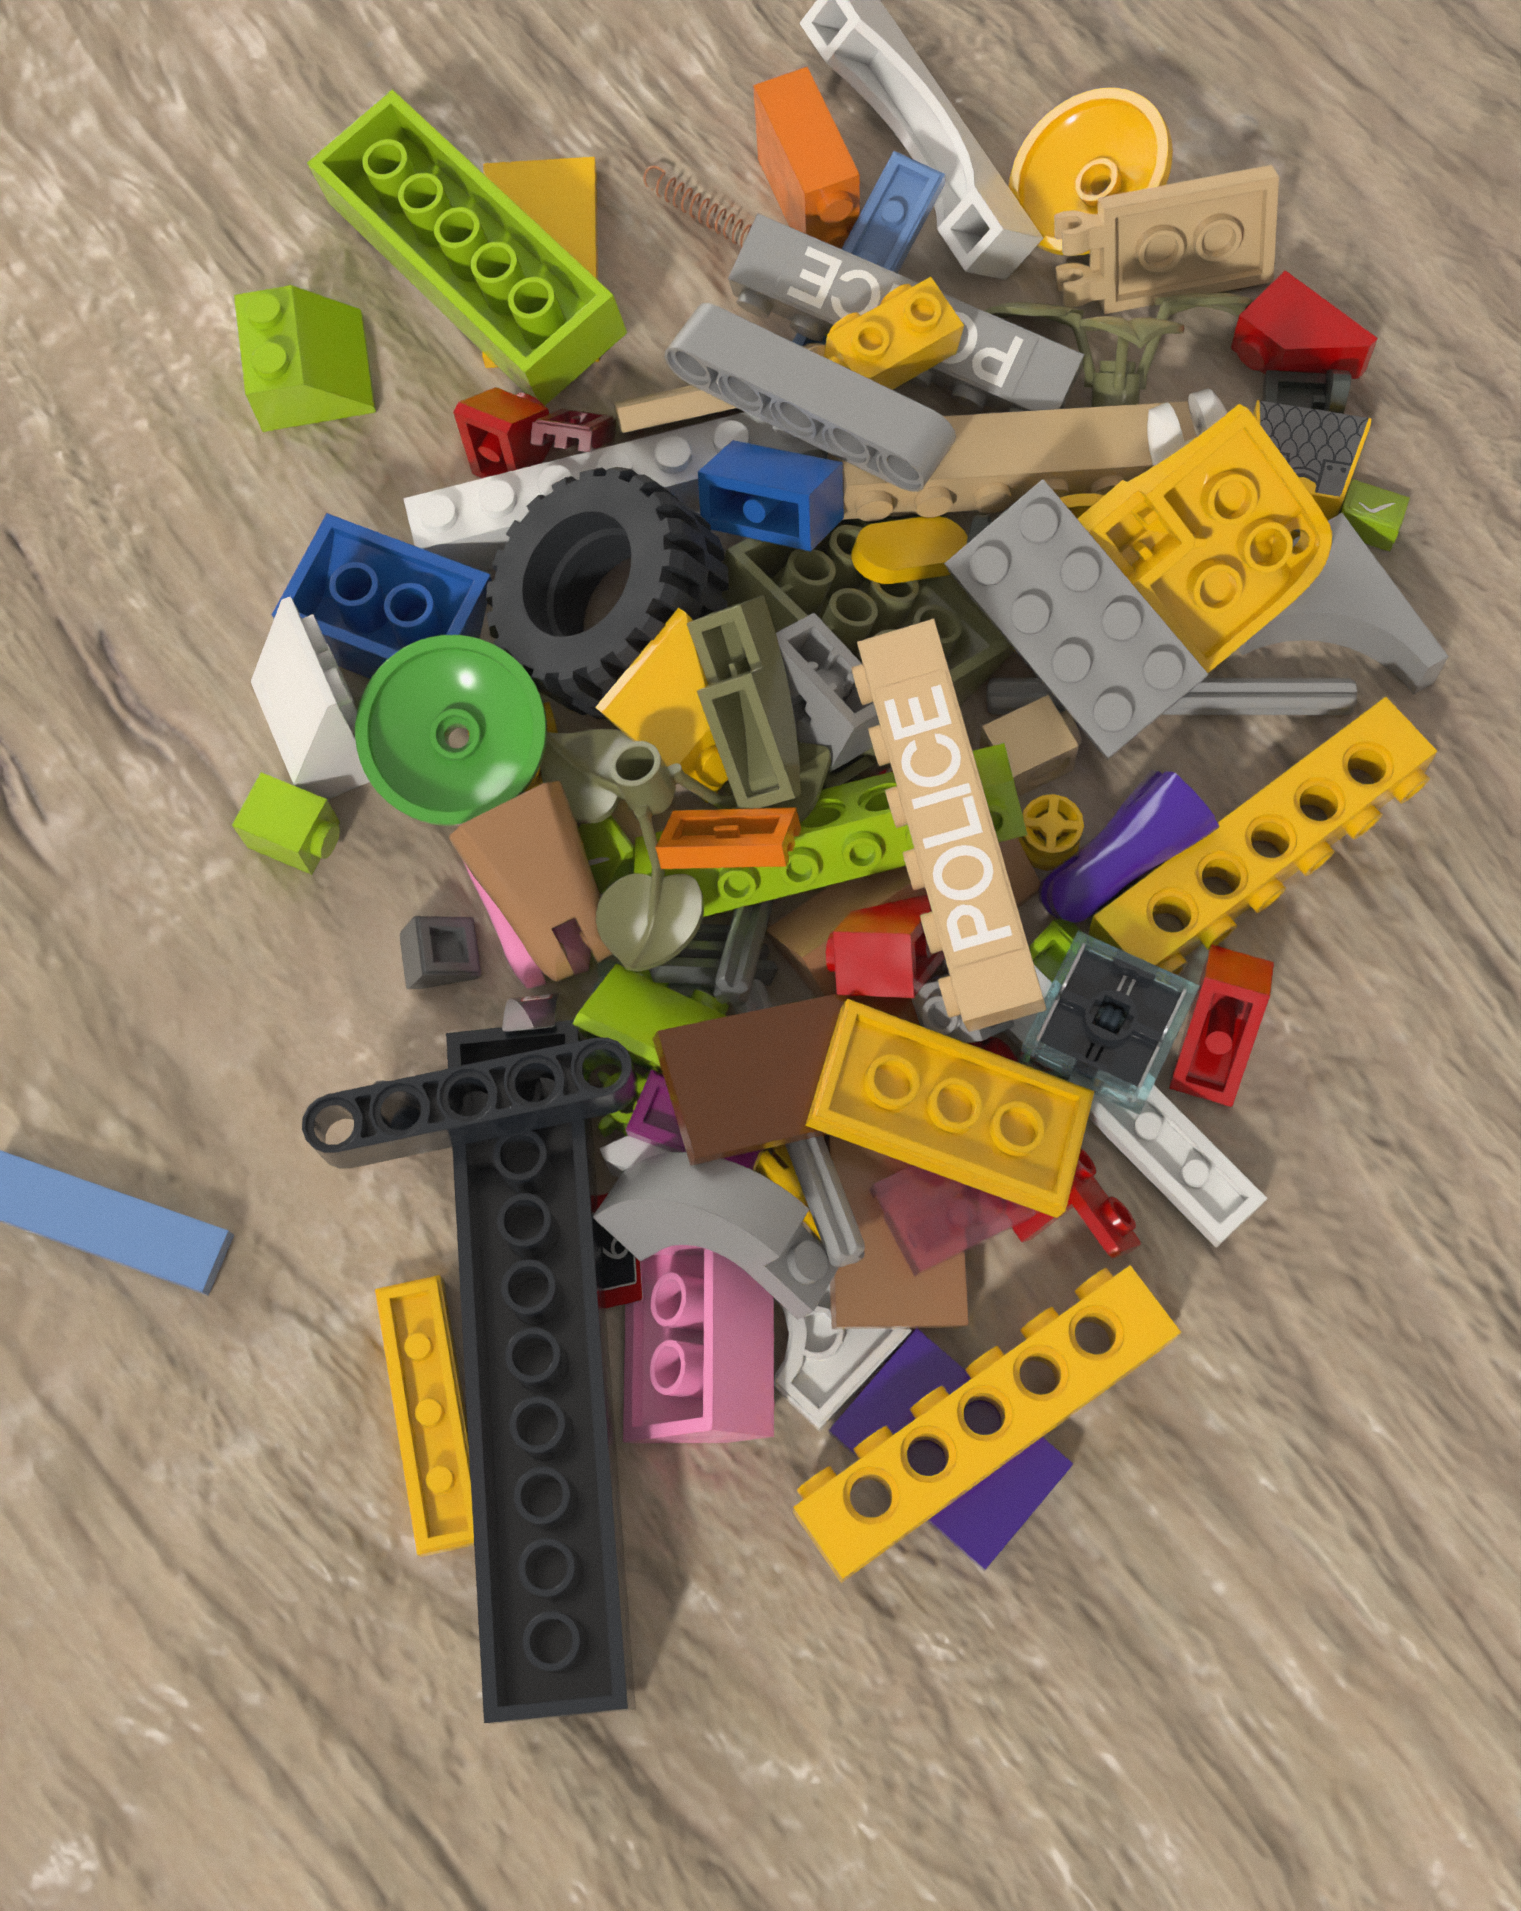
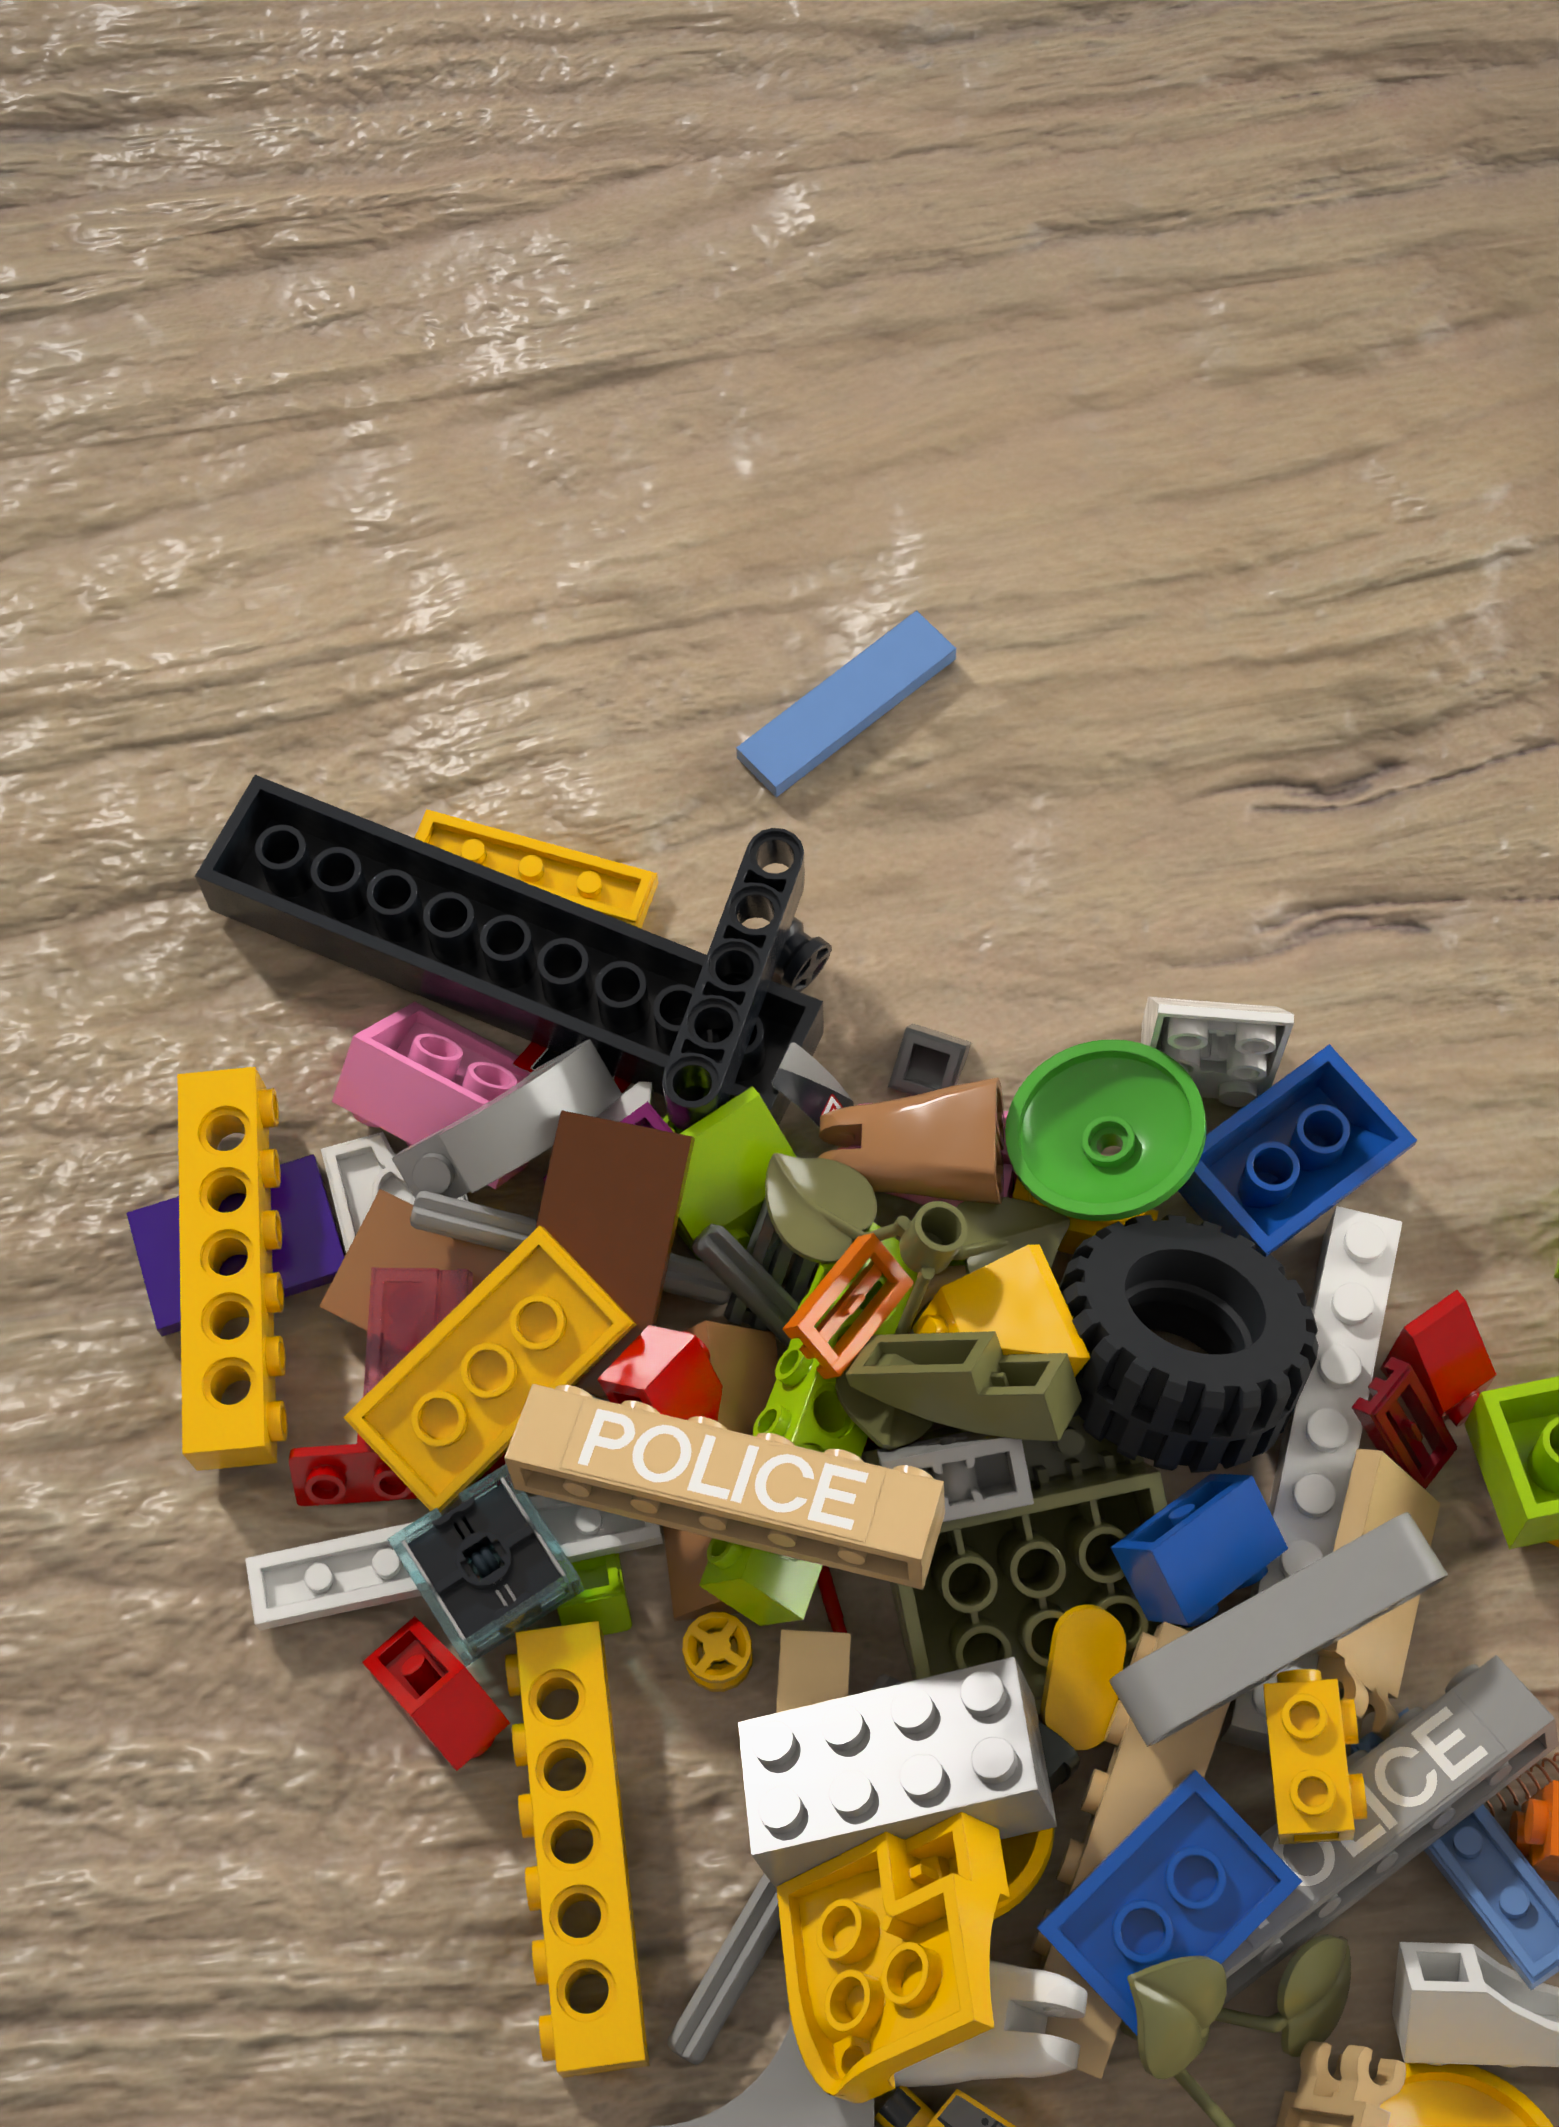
camera: 115 degrees right, 5 degrees down
(287, 823) = (1116, 985): lime brick -> none
(1051, 392) = (1171, 1889): none -> blue plate
(1148, 829) = (651, 1730): dark purple piece -> none

